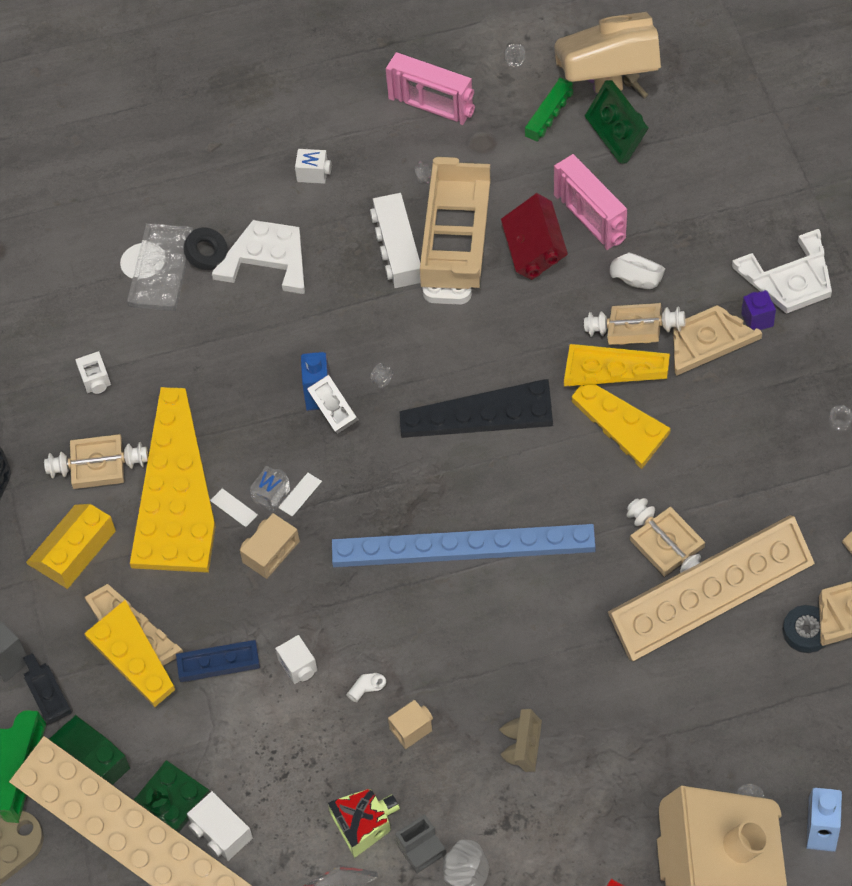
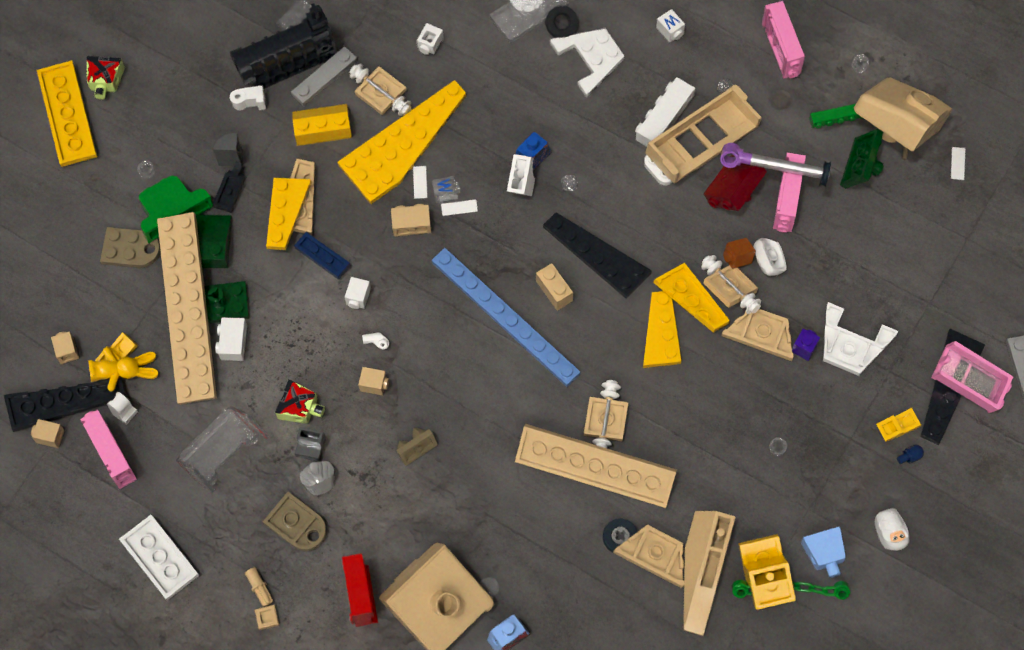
camera: 45 degrees right, 10 degrees up
(21, 501) = (324, 76): none -> light grey plate
(479, 473) = (554, 286): none -> tan brick
(608, 152) = (772, 163): none -> piece
(608, 290) = (739, 253): none -> dark orange brick
(692, 61) = (958, 163): none -> white sticker

